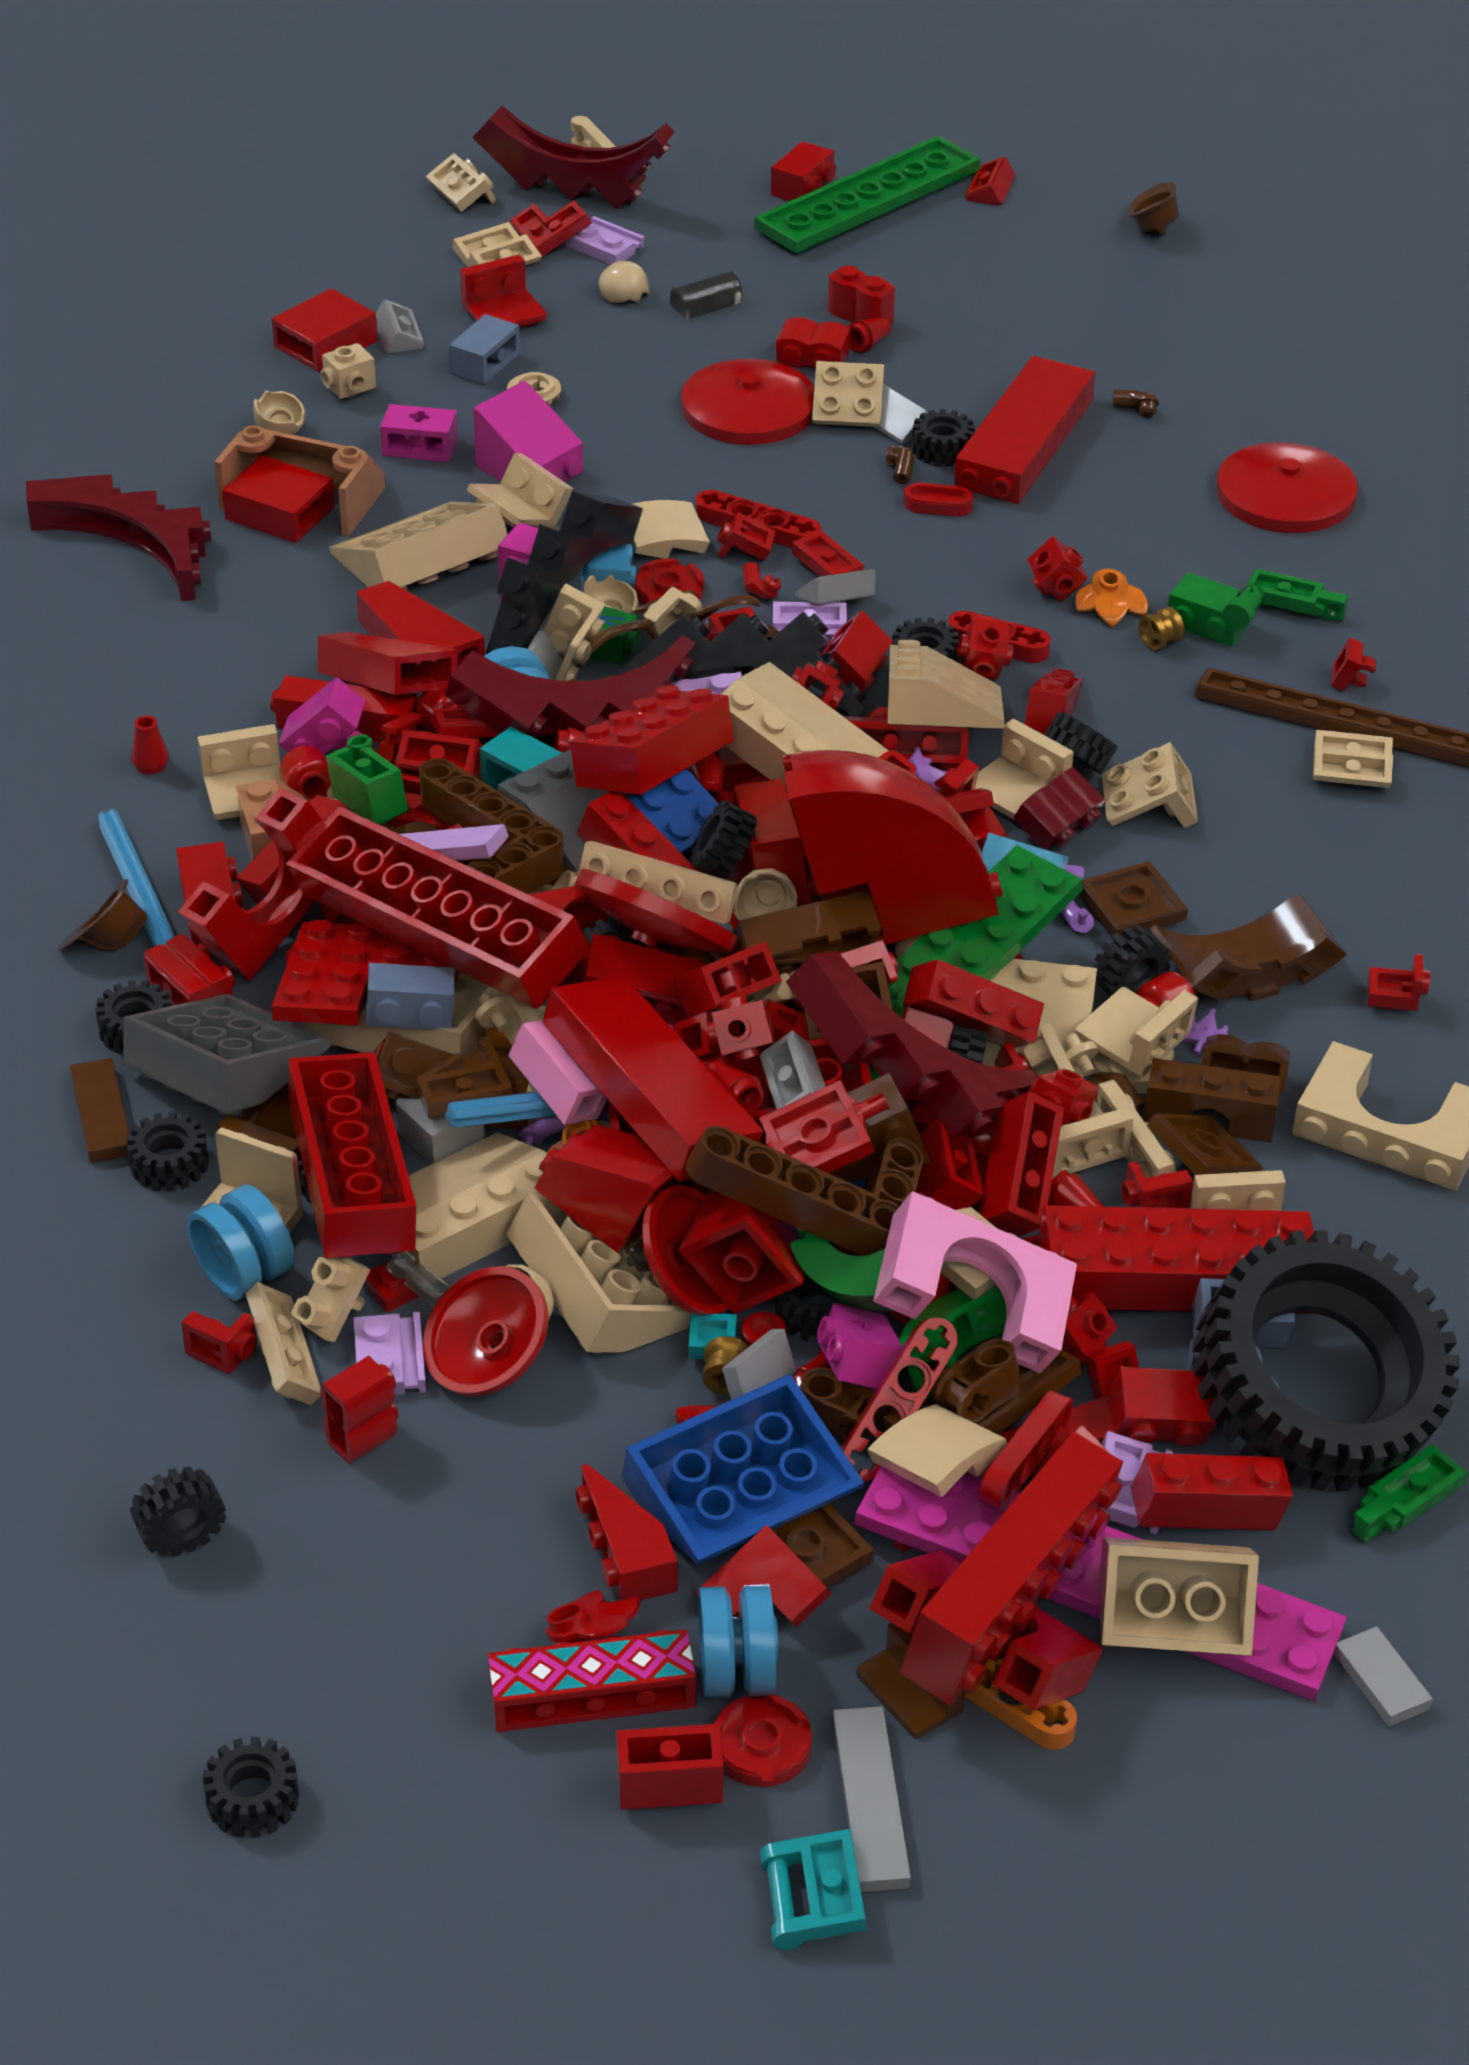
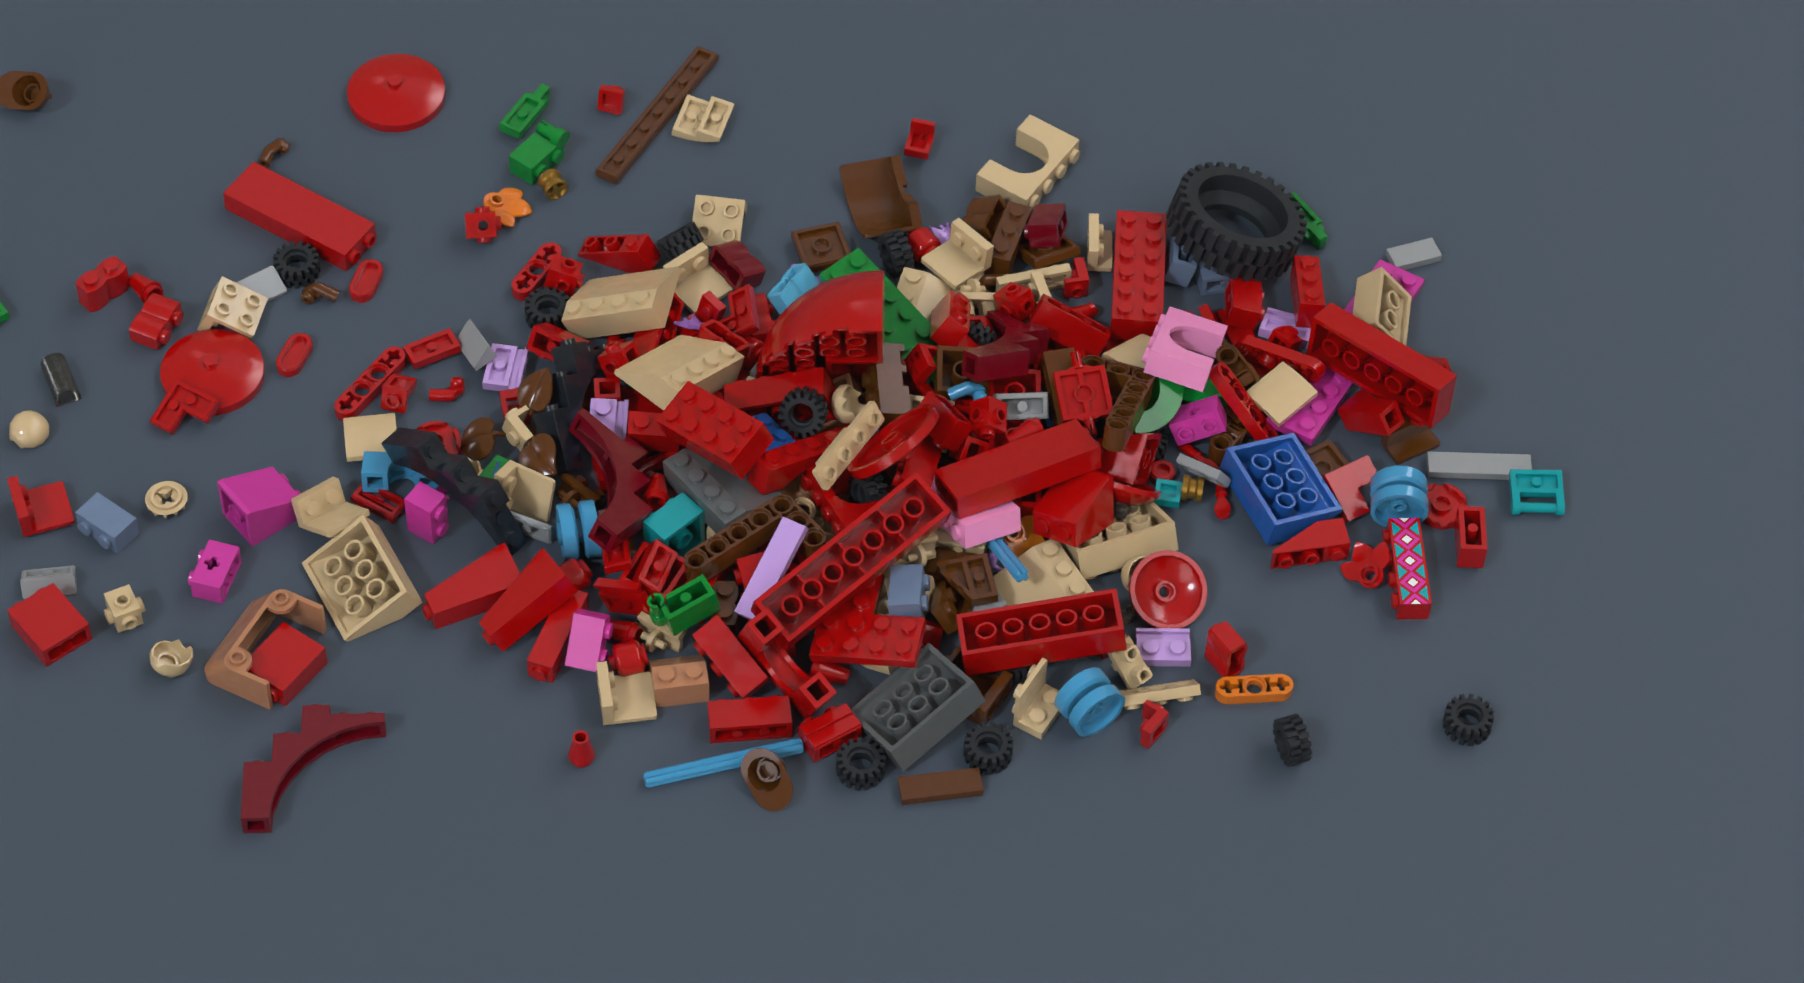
camera: 85 degrees left, 10 degrees up
(300, 1491) = (1245, 696): none -> orange beam
(677, 379) = (183, 400): none -> red tile
(794, 458) = (294, 355): none -> red tile
(799, 1018) = (967, 388): none -> dark azure arm
(1249, 1132) = (1046, 225): none -> dark red brick

